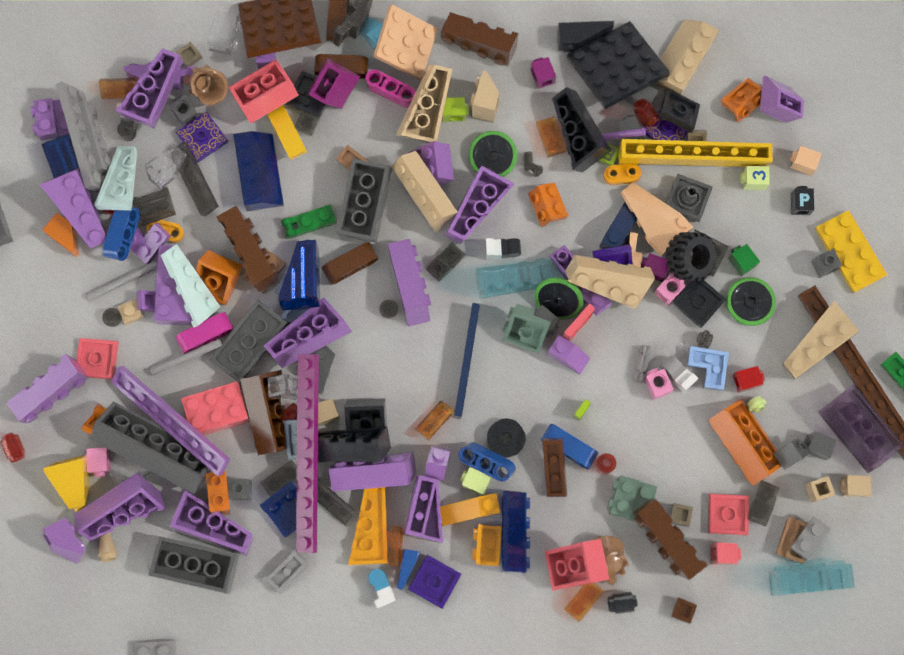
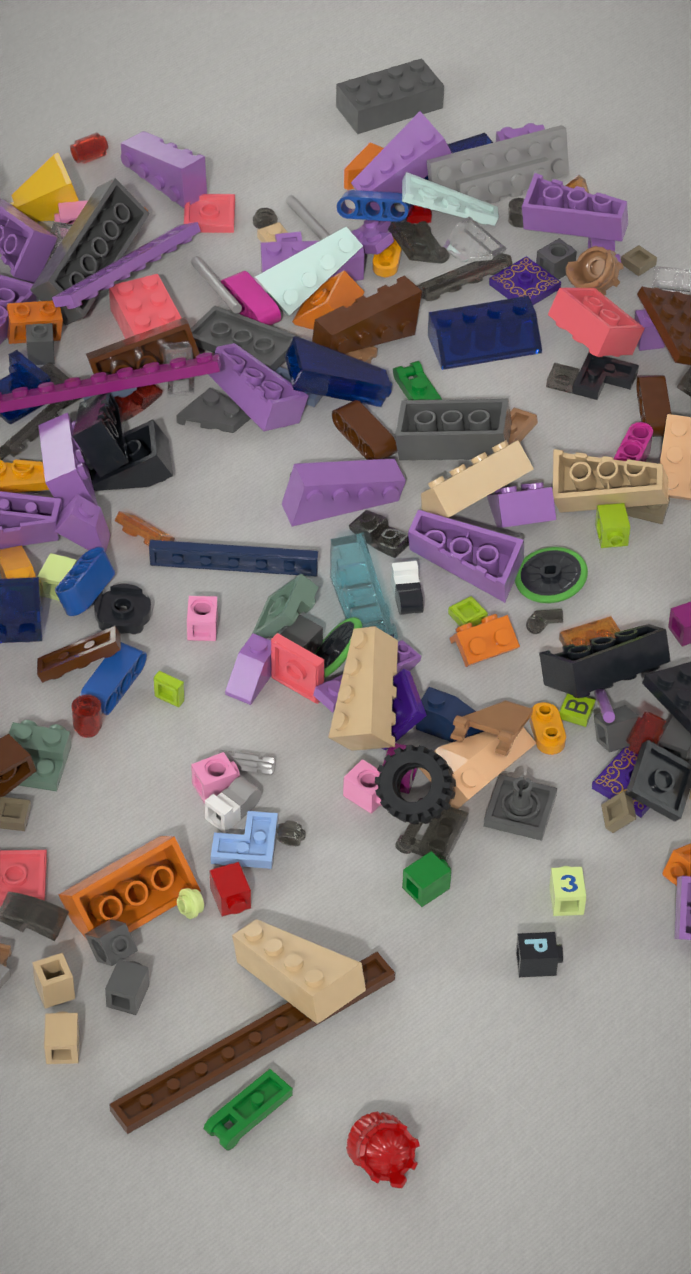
camera: 85 degrees right, 30 degrees down
(286, 132) = (545, 352): yellow slope -> none
(327, 412) = (149, 409): tan brick -> none
(333, 84) = (620, 386): magenta slope -> none
(485, 99) = (634, 550): tan slope -> none
(521, 212) = (467, 612): none -> lime tile
(527, 381) = (202, 618): none -> bright pink brick
(628, 201) = (501, 719): none -> medium nougat flag
(636, 256) = (428, 735): light nougat slope -> none
(694, 153) = (592, 804): yellow brick -> none
(699, 302) = (352, 826): black plate -> none
(747, 313) = (344, 899): black wheel -> none
(805, 160) = (609, 957): light nougat brick -> none
(826, 263) = (434, 987): dark grey brick -> none
(858, 260) = (461, 1031): yellow plate -> none
(860, 429) = (156, 1035): clear purple slope -> none

